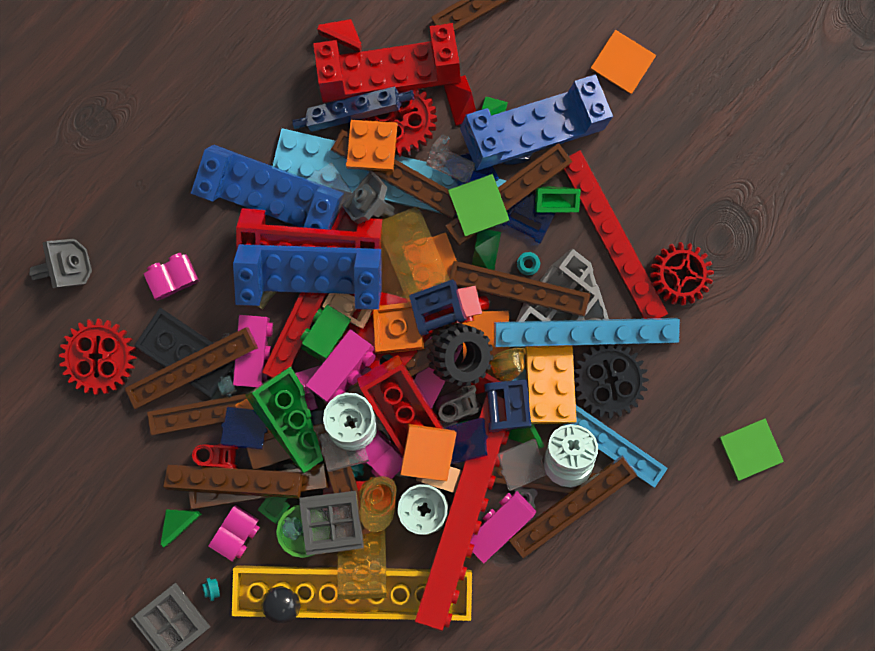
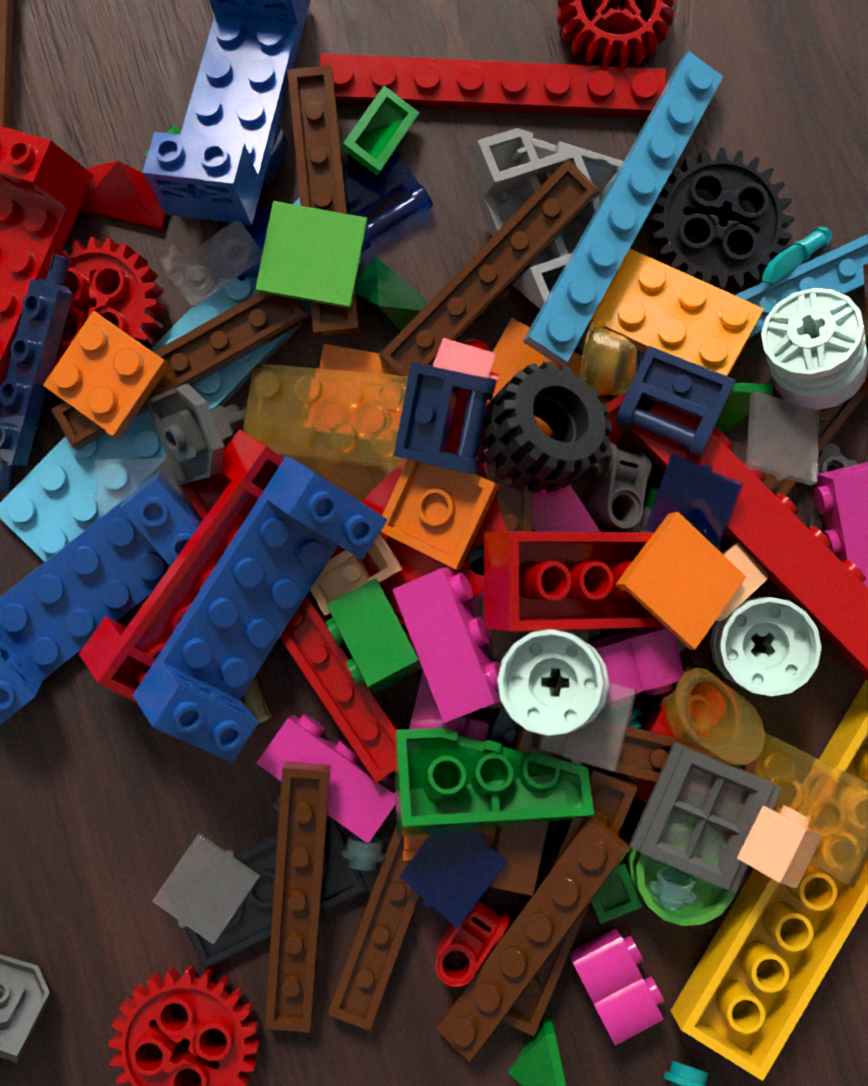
camera: 55 degrees left, 0 degrees up
(170, 325) = (206, 888): none -> clear piece
(171, 276) = (125, 839): dark pink brick -> none
(281, 605) = (795, 987): black hair -> none
(337, 559) = (780, 845): none -> light nougat brick
(528, 256) = (456, 230): teal plate -> none
(615, 424) = (796, 254): none -> teal piece

